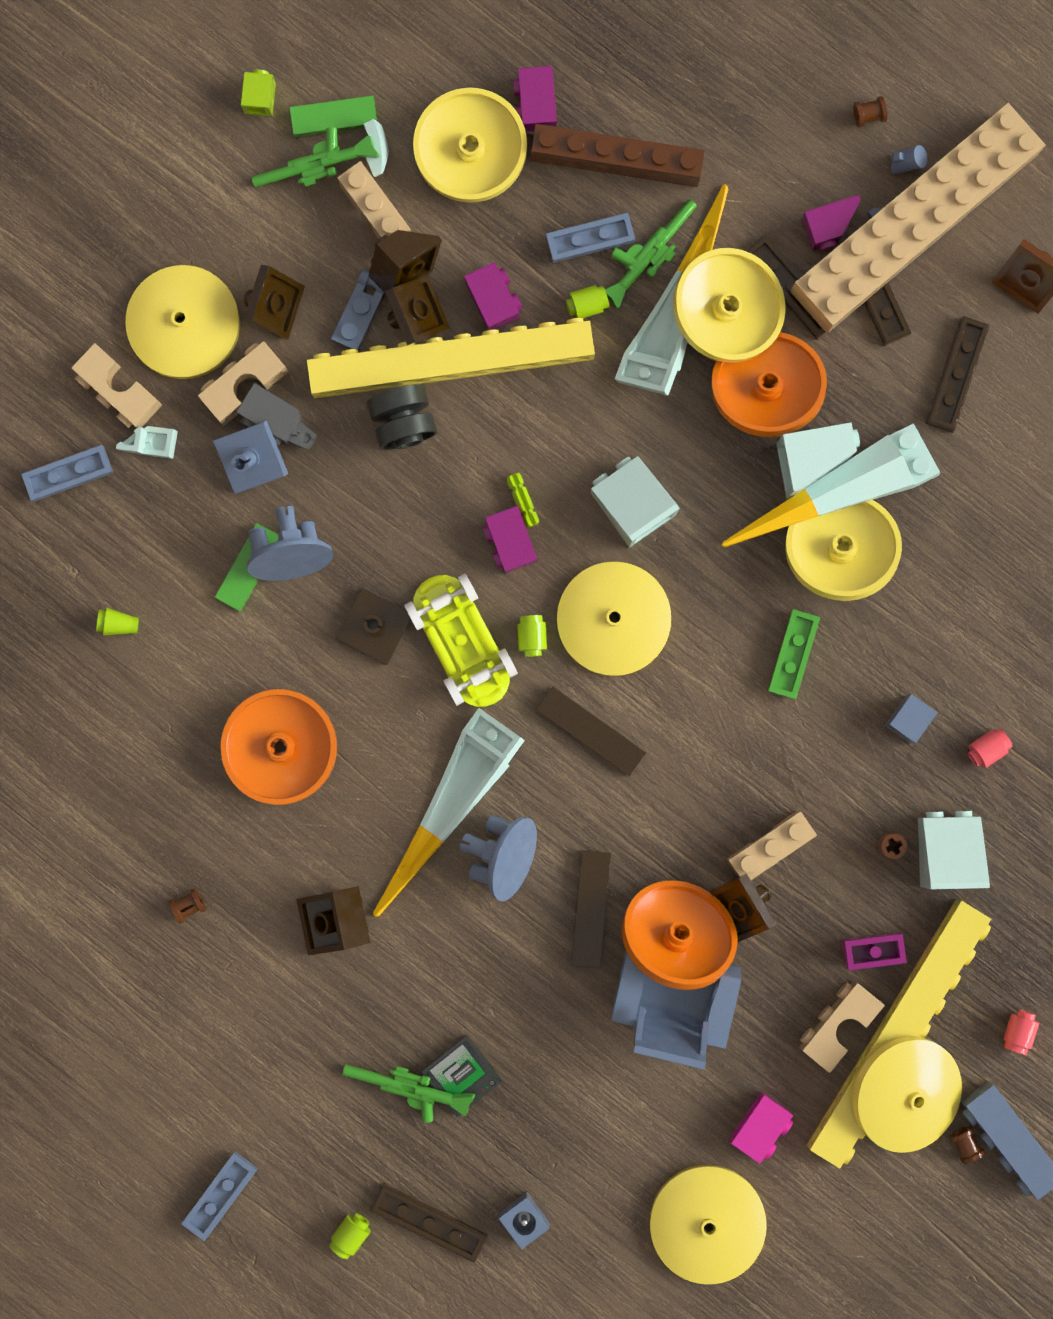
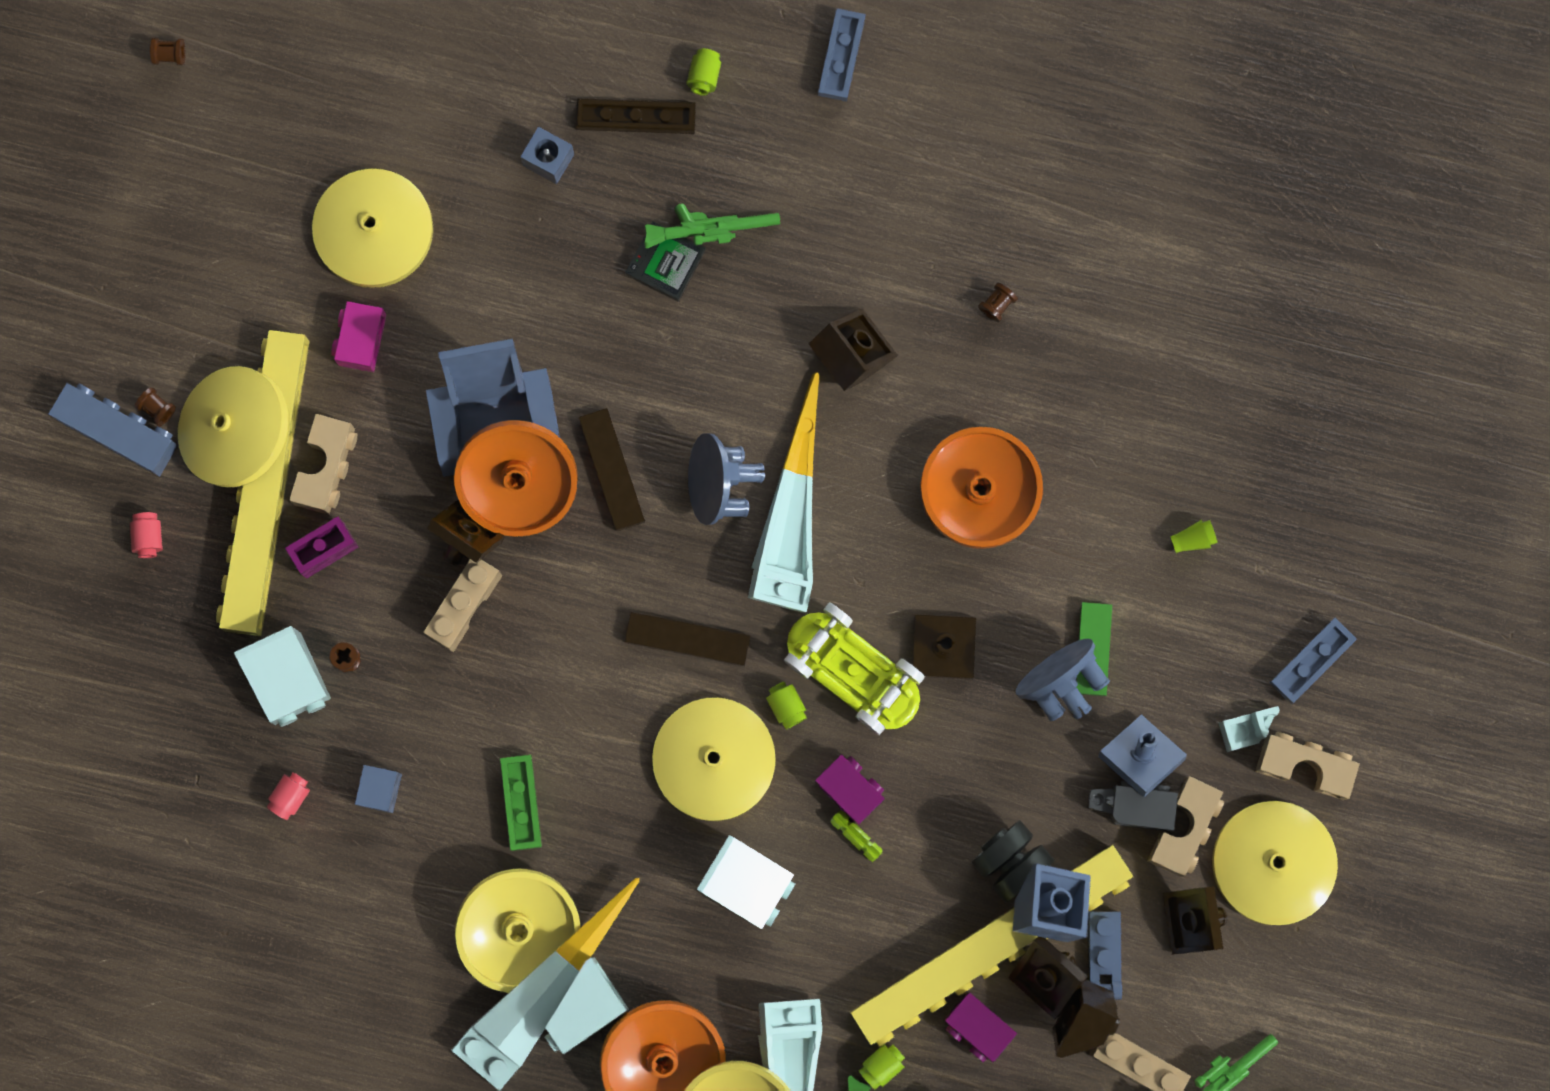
camera: 155 degrees right, 5 degrees down
(385, 362) = (1053, 904): none -> sand blue slope

